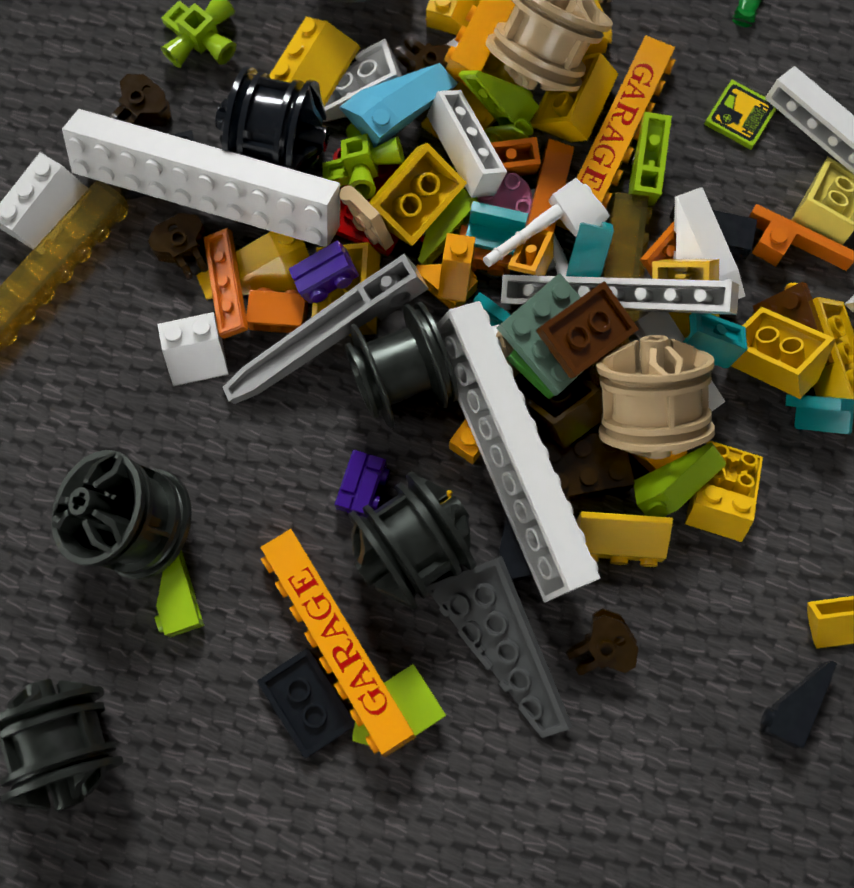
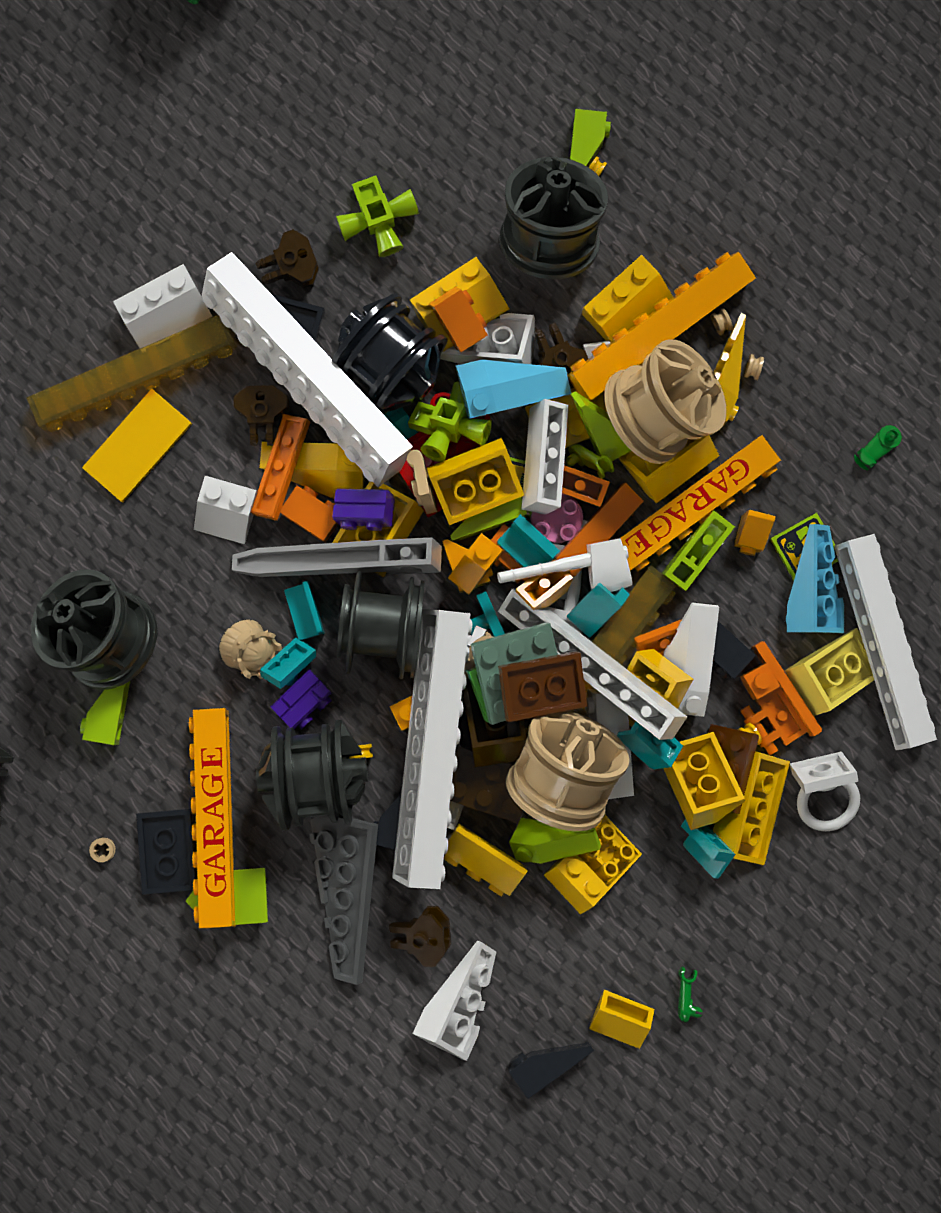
camera: 25 degrees right, 10 degrees up
(79, 338) = (137, 445): none -> yellow tile
(245, 745) = (101, 841): none -> tan bush
(285, 463) = (248, 647): none -> tan hair
(318, 63) = (459, 319): none -> orange brick
(319, 402) = (304, 611): none -> teal panel
(329, 456) = (286, 665): none -> teal tile
(675, 706) = (452, 1011): none -> white wedge
(689, 116) = (753, 532): none -> light orange slope
(775, 152) = (814, 597): none -> medium azure wedge
(810, 264) = (780, 715): none -> orange plate

